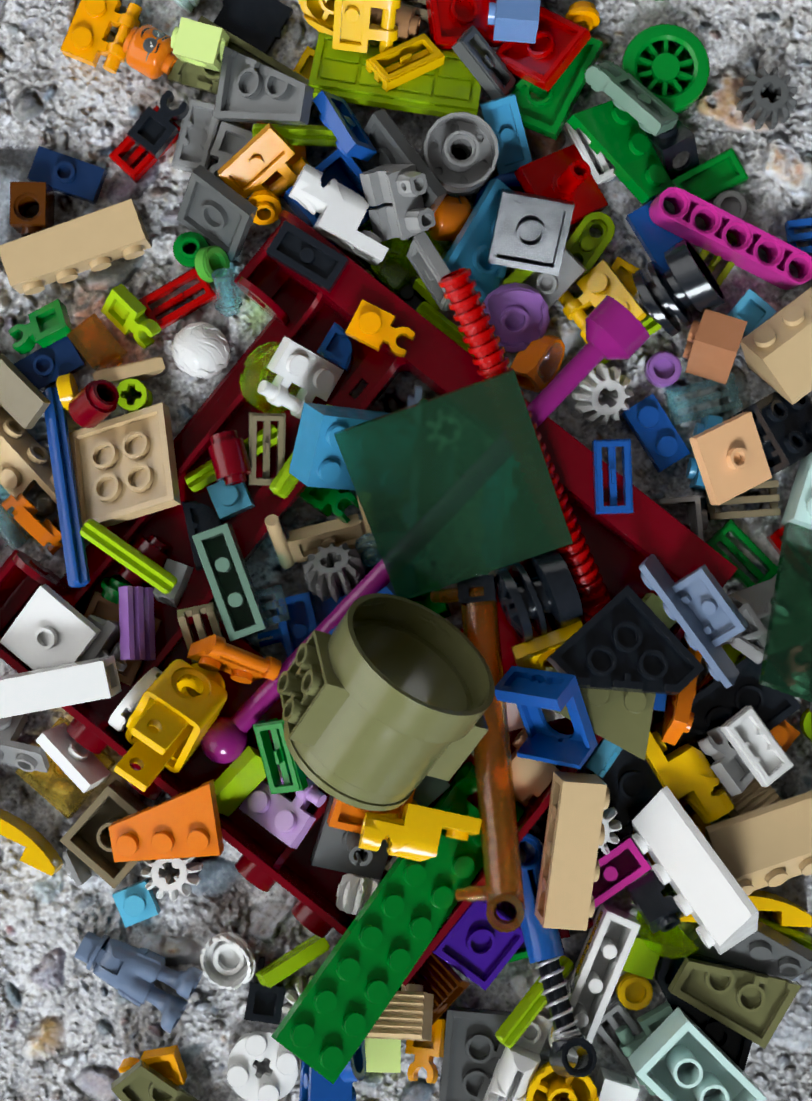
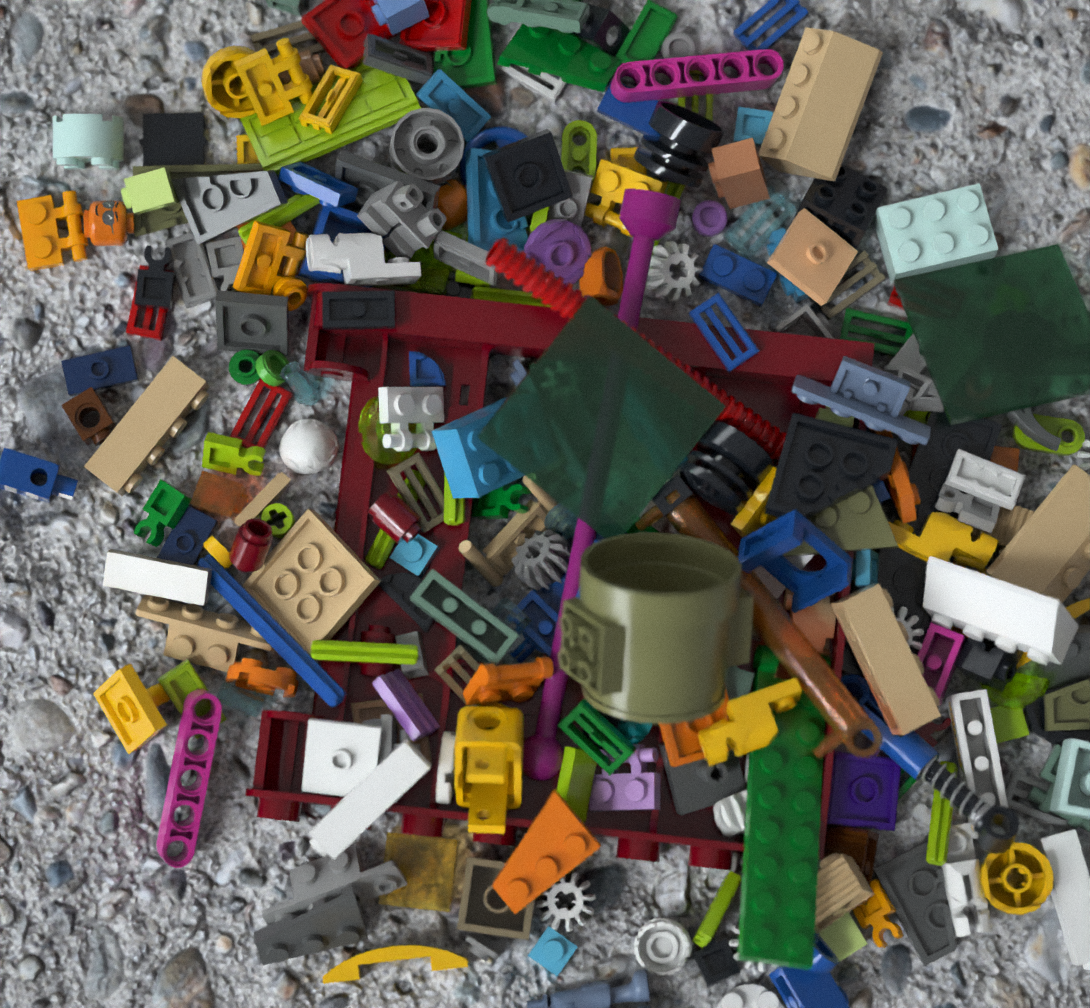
camera: 30 degrees left, 5 degrees down
(73, 758) = (423, 852): white plate -> none
(110, 587) = (365, 691): green plate -> none
(374, 326) = (449, 333): light orange plate -> none
(563, 177) = (524, 113): red tile -> none
(634, 991) = (1021, 755): yellow tile -> none

